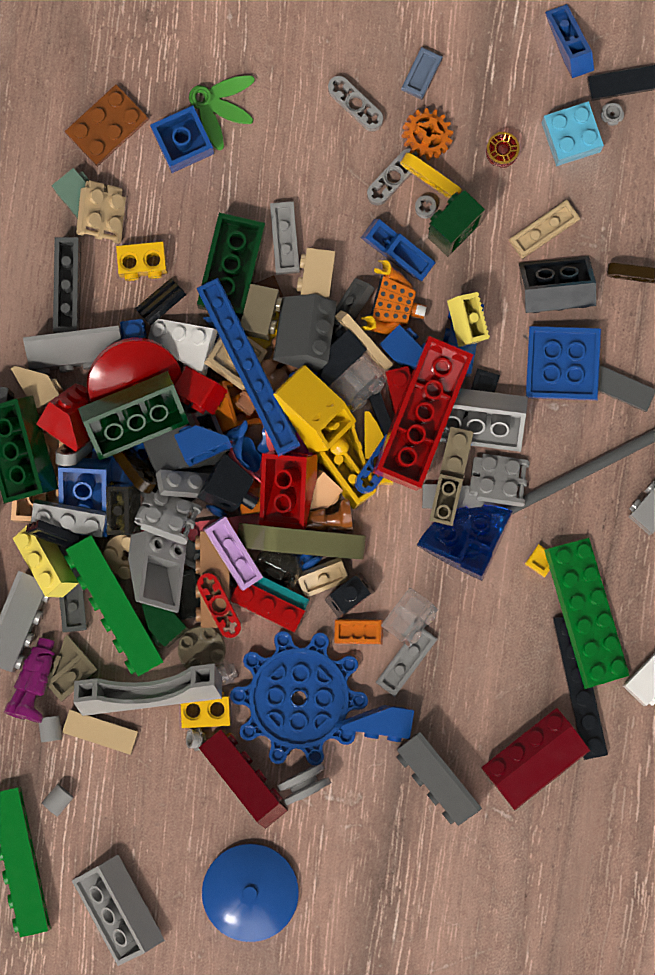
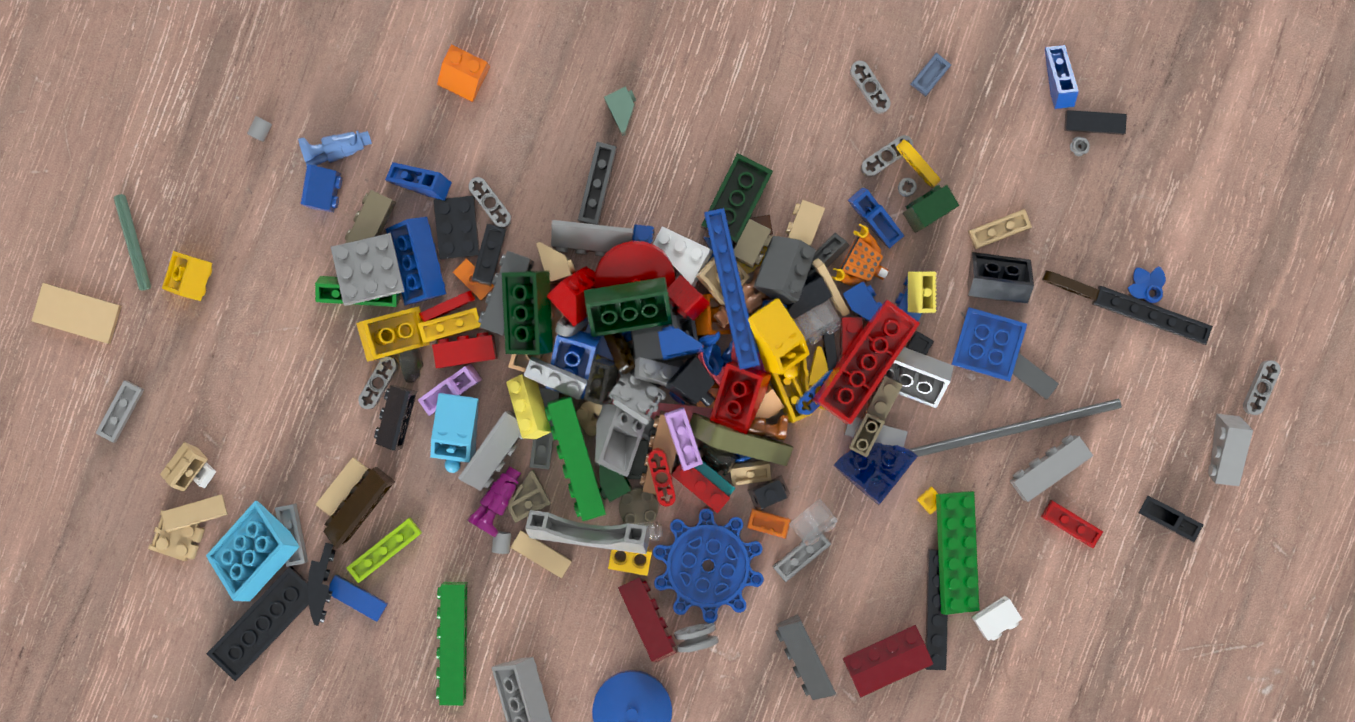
camera: 10 degrees right, 5 degrees up
(52, 533) = (539, 387): black tile -> none
(57, 800) = (494, 601): light grey beam -> none
(101, 209) = (640, 127): tan plate -> none
(106, 125) = (660, 56): dark orange plate -> none
(141, 254) = (664, 171): yellow brick -> none
(159, 298) = (670, 212): black tile -> none
(182, 139) = (720, 83): blue brick -> none
(195, 738) = (616, 578): light grey plate -> none
(222, 108) = (761, 66): bright green plant -> none
(284, 238) = (785, 185): light grey plate -> none
(383, 720) = (772, 600): blue slope -> none
(417, 136) = (923, 127): orange gear -> none
(498, 479) = (912, 427): light grey plate -> none
(508, 142) = (987, 148): clear red wheel -> none
(572, 133) = (1043, 155): medium azure brick -> none

